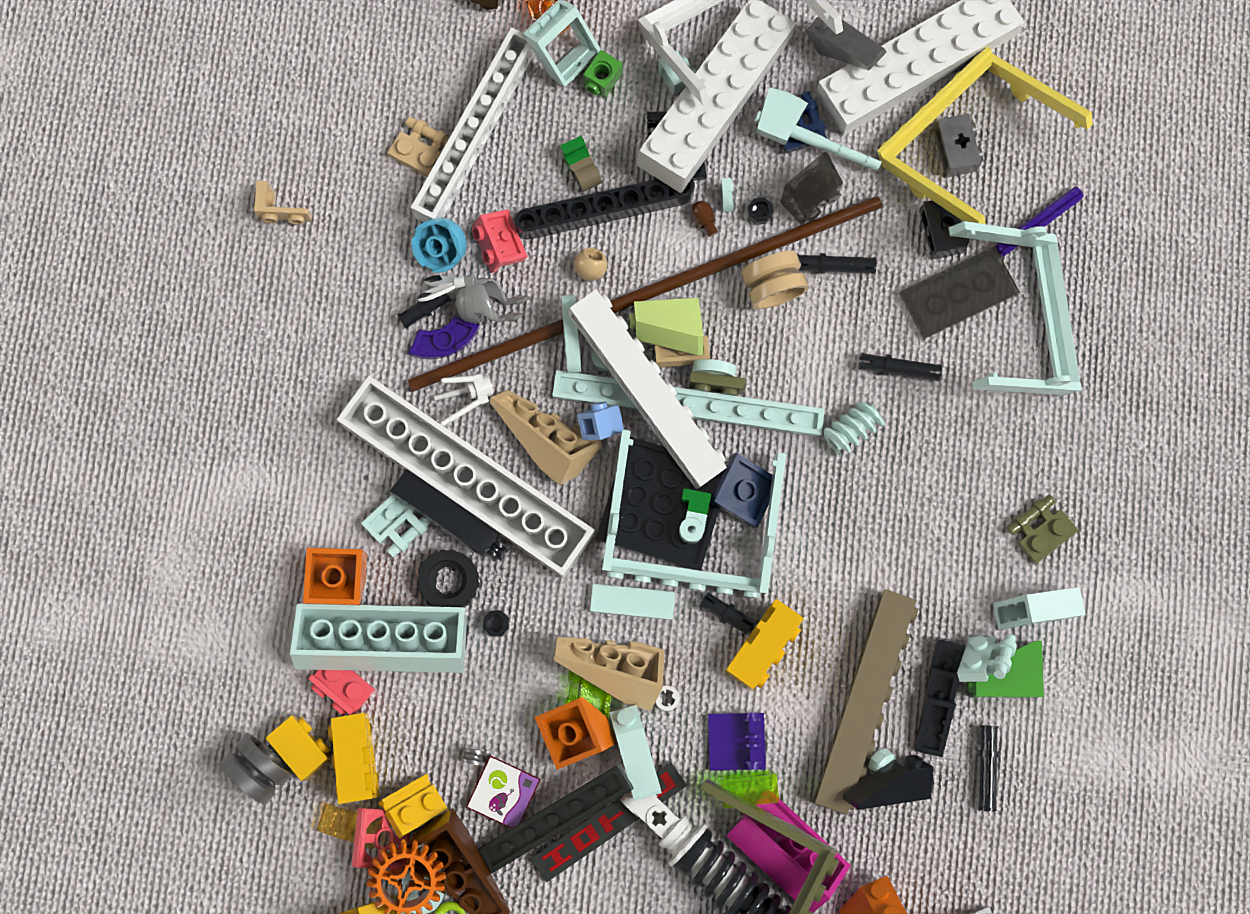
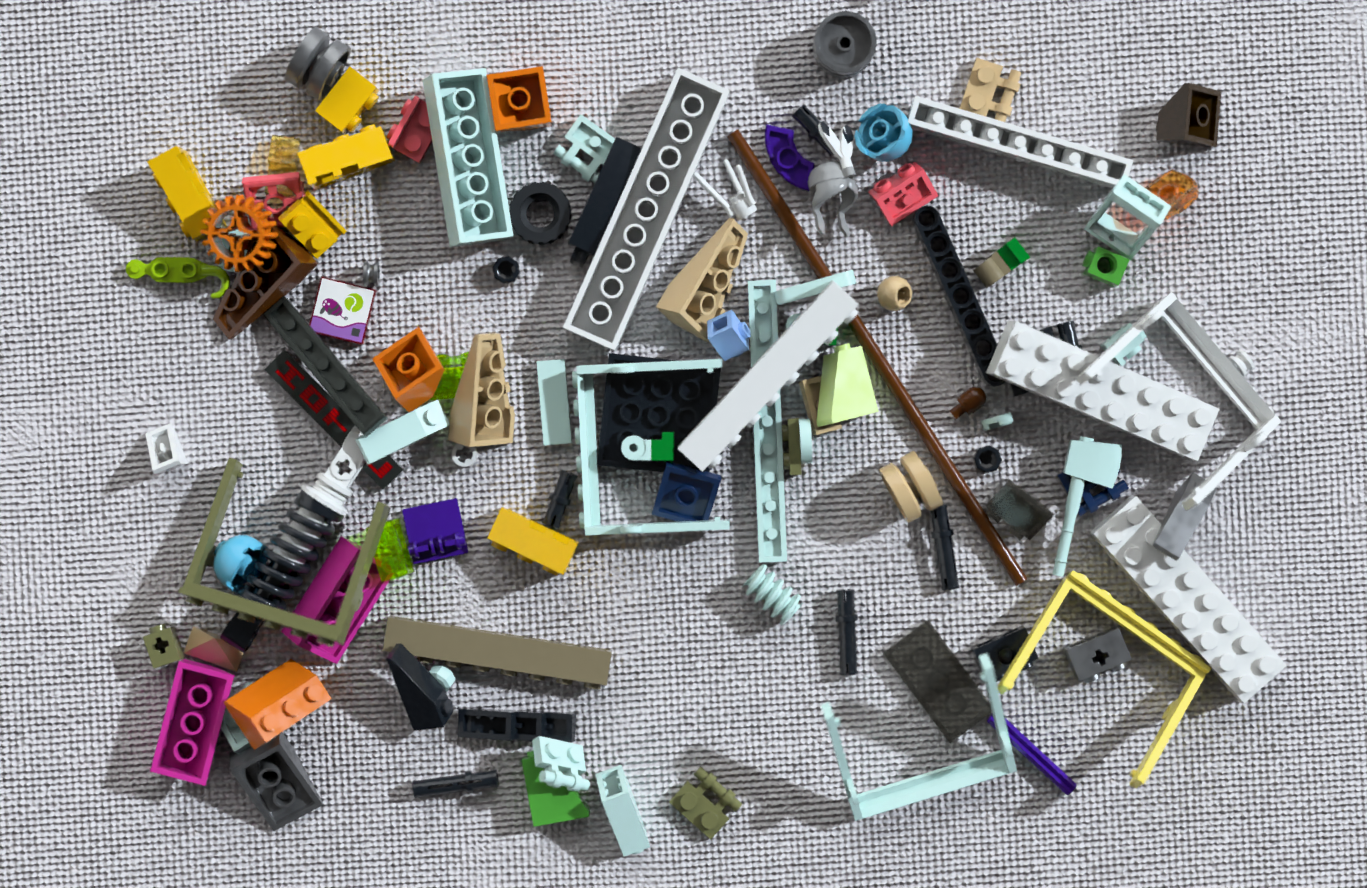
camera: 80 degrees right, 10 degrees up
(351, 251) = (844, 61): none -> flat silver wheel

